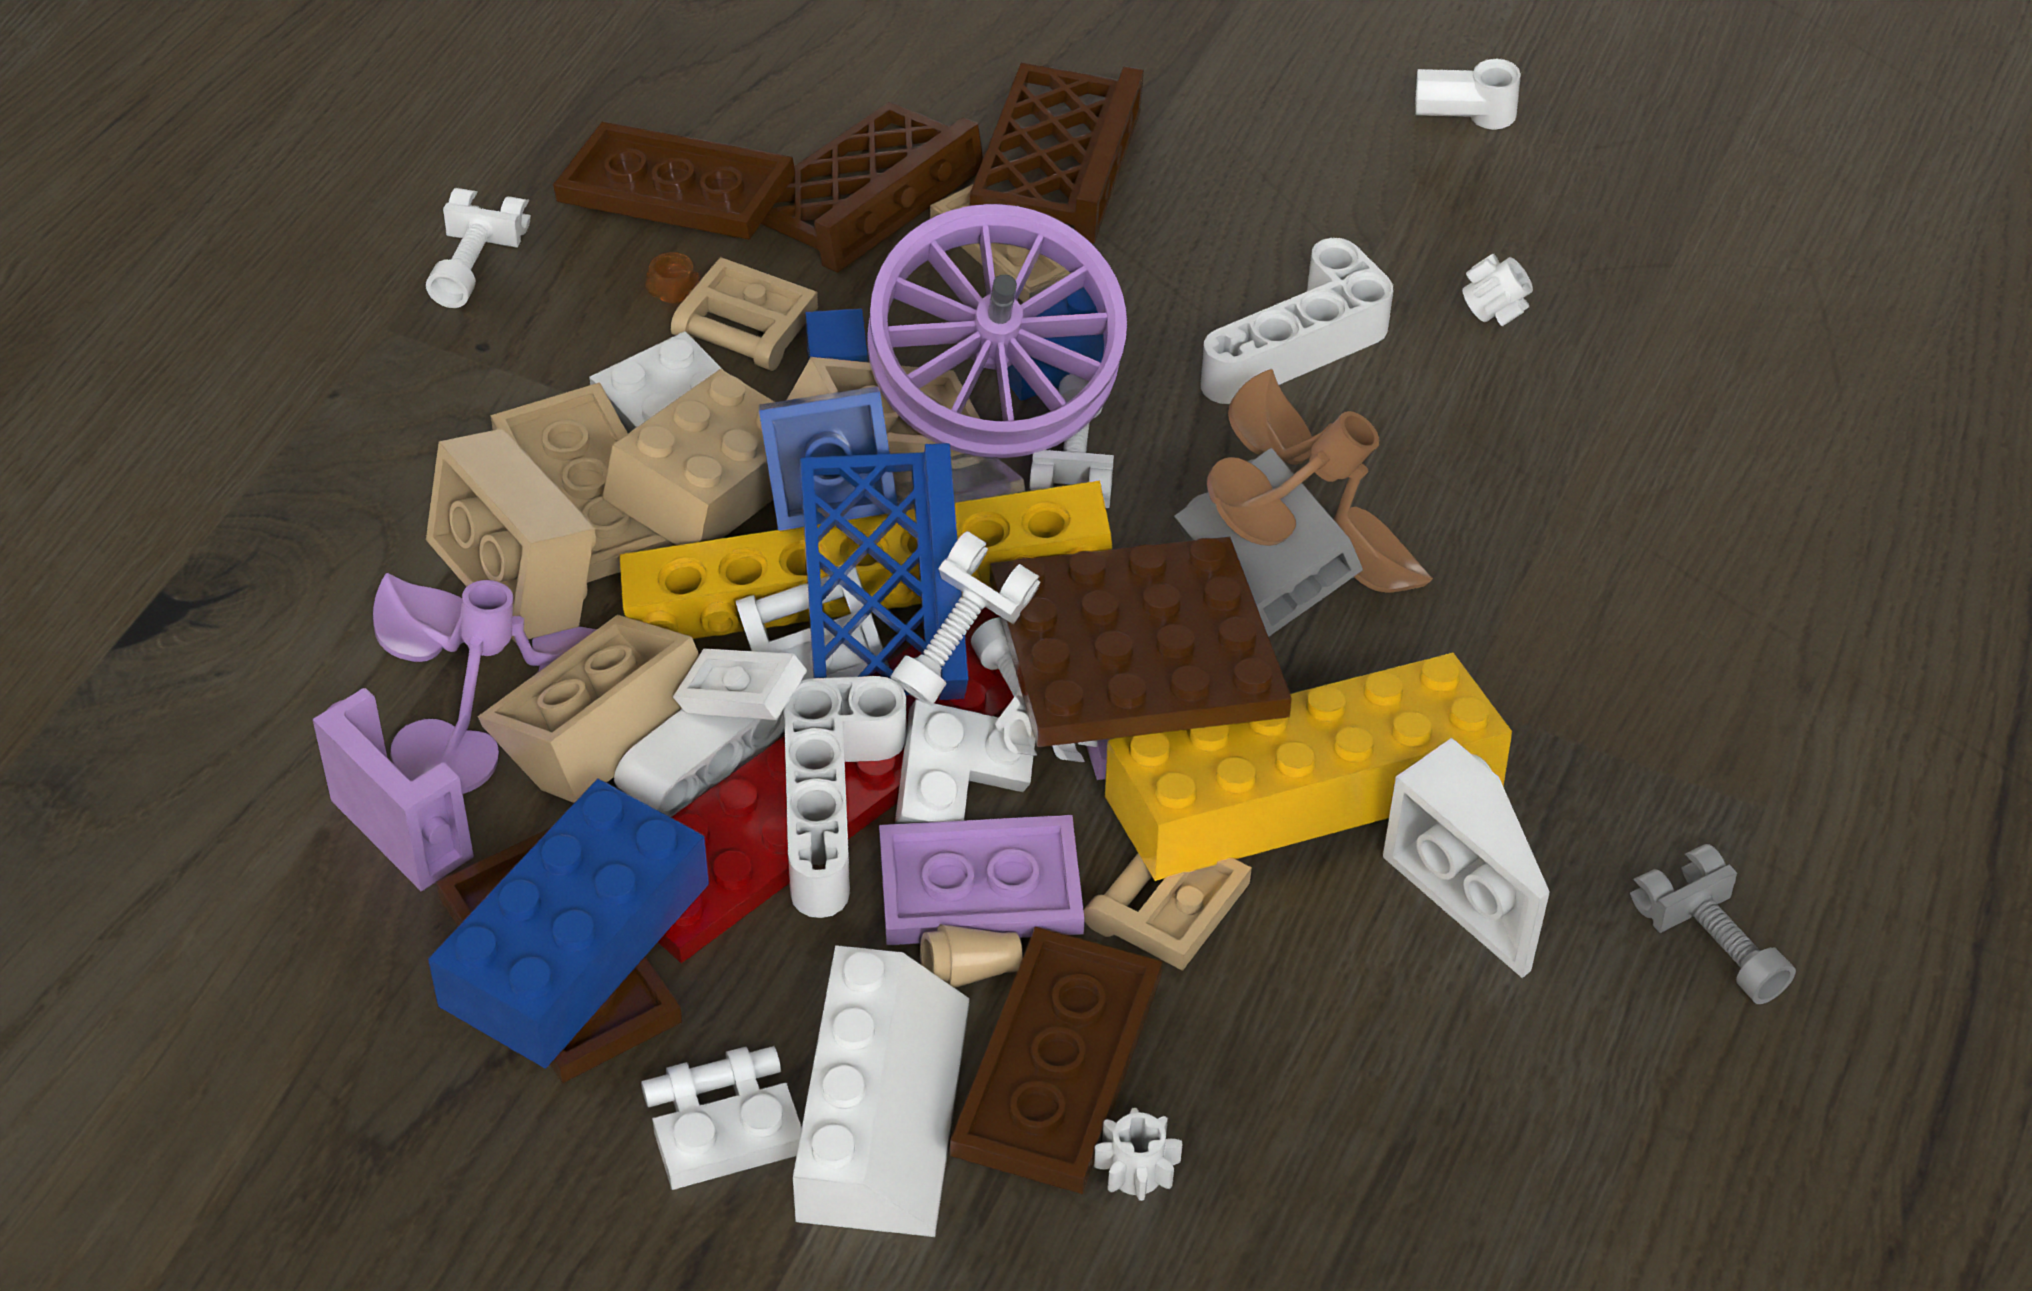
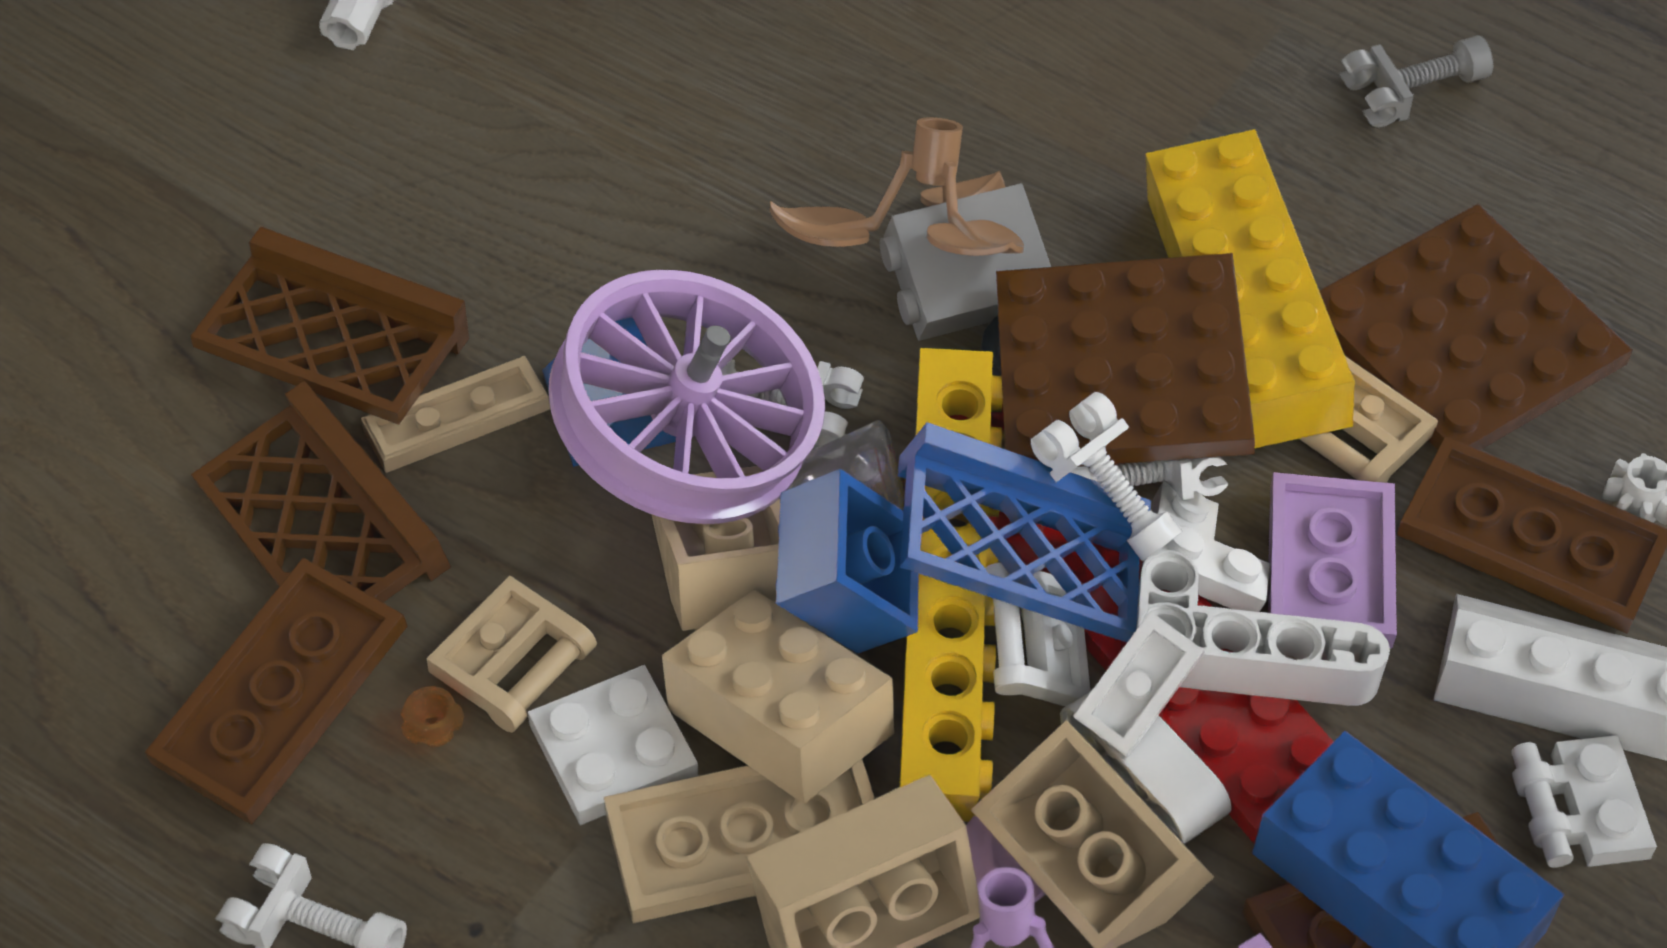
camera: 80 degrees left, 5 degrees up
(836, 335) = (609, 573): blue brick -> none
(969, 954) = (1422, 587): tan cone -> none
(1338, 315) = (650, 145): white beam -> none
(1340, 997) = (1471, 329): none -> reddish brown plate
(1467, 851) = (1368, 191): white slope -> none
(1497, 289) = (657, 34): white gear -> none

